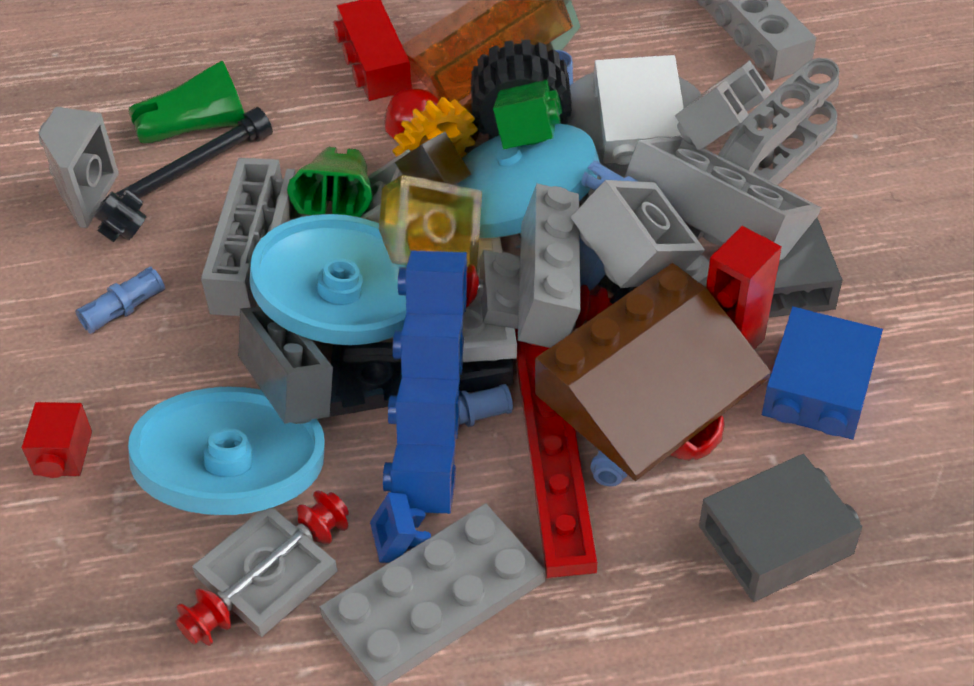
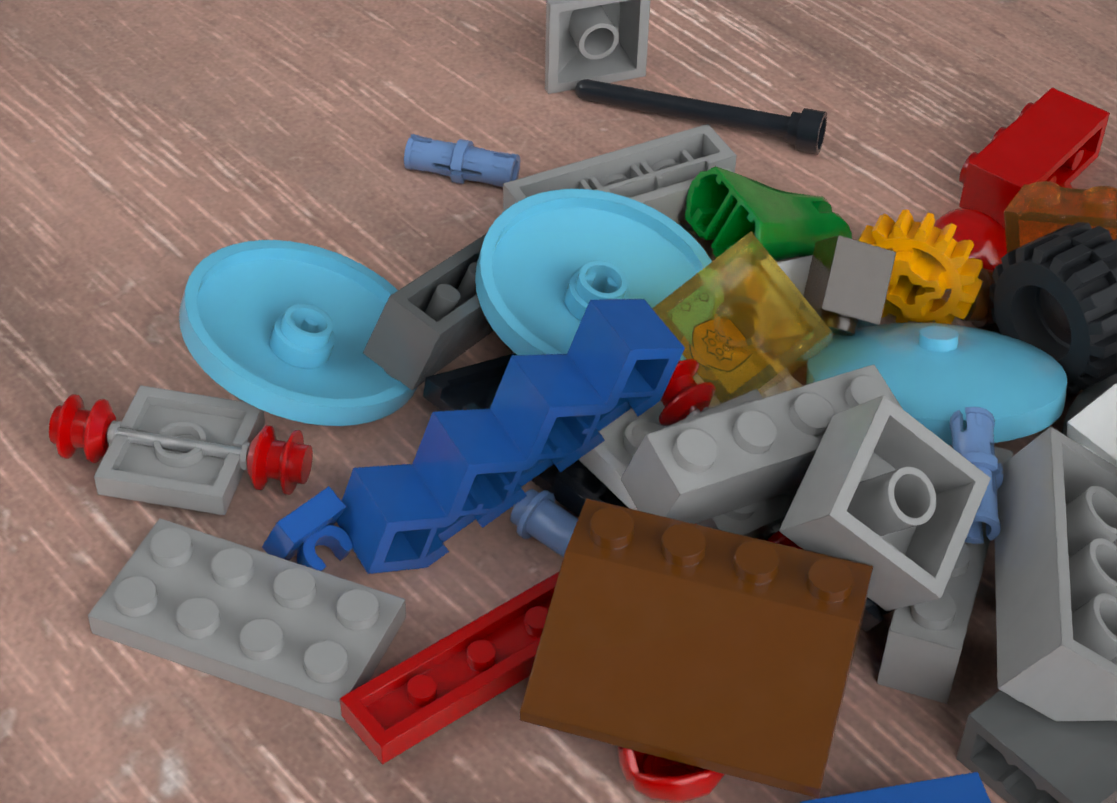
camera: 55 degrees right, 5 degrees down
(57, 439) = (235, 206): red brick -> none
(120, 216) = (567, 97): black gear -> none
(197, 104) = (783, 70): green piece -> none
(527, 114) = (1000, 309): green brick -> none
(744, 281) = (913, 683): red brick -> none

